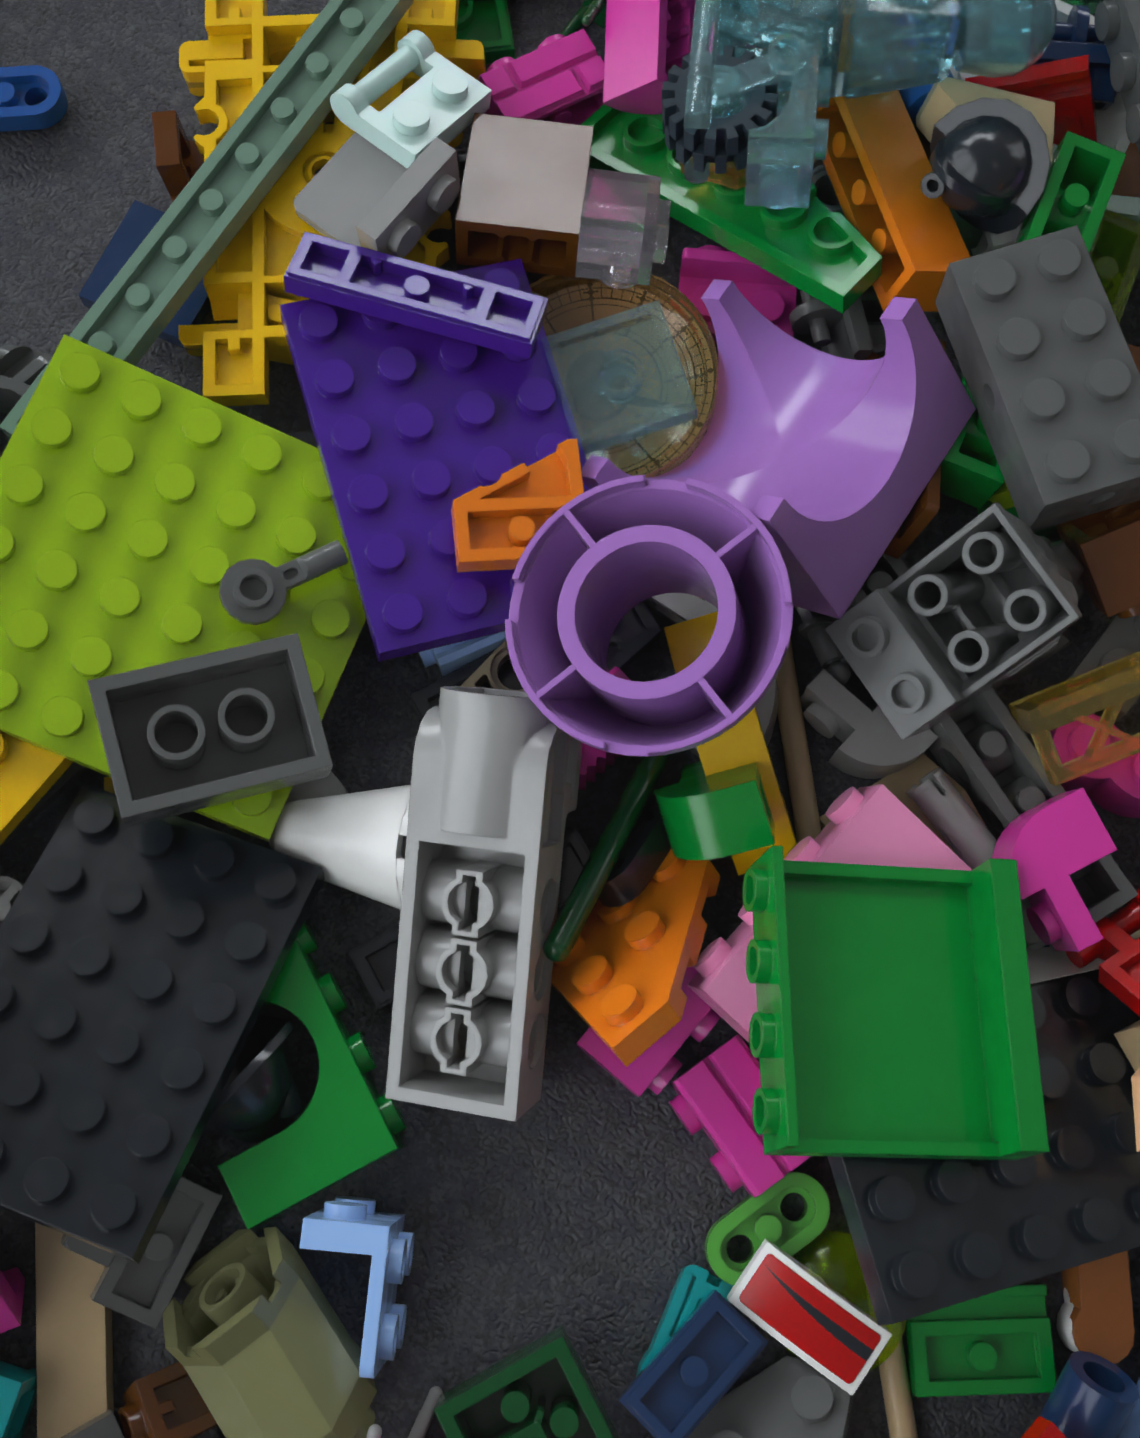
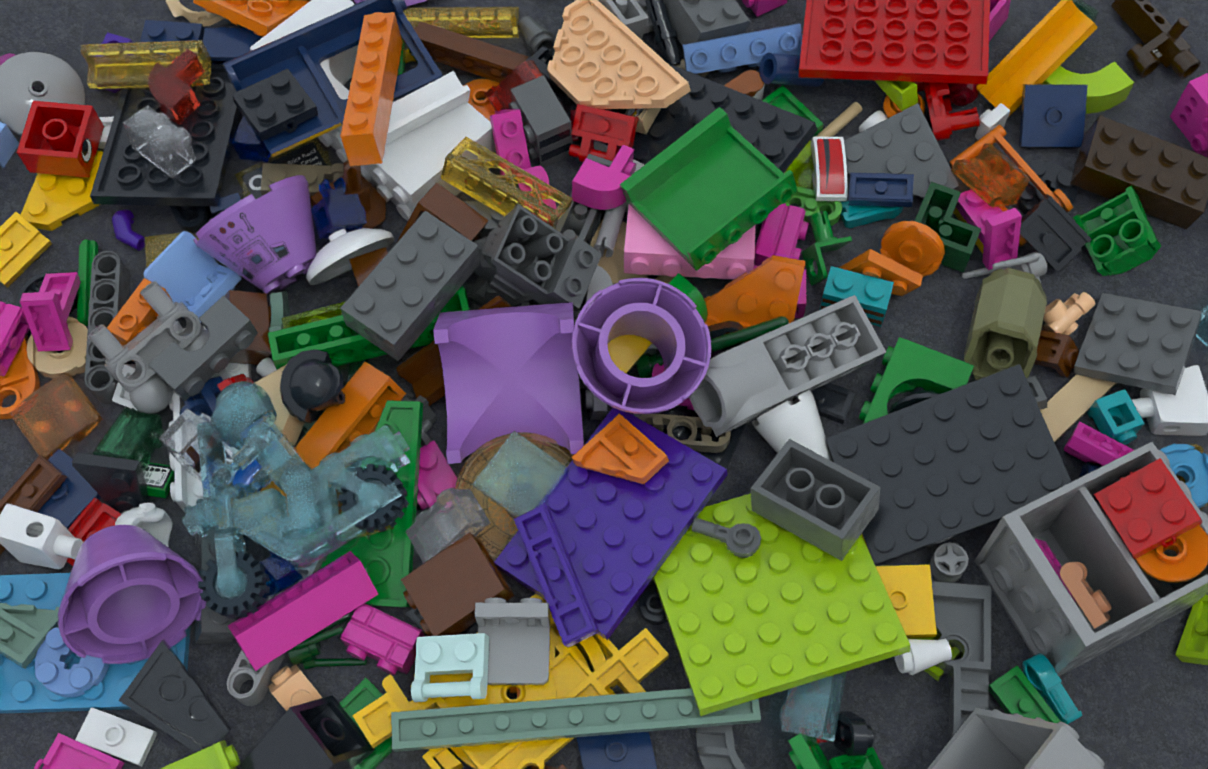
camera: 125 degrees left, 10 degrees down
(356, 1228) = (939, 322): light blue bracket -> none
(532, 1152) = (870, 291): none -> teal brick
(538, 1325) = (913, 246): none -> orange tile
(547, 1216) = (882, 267): none -> orange wing
(672, 1183) = (823, 243): none -> green bracket

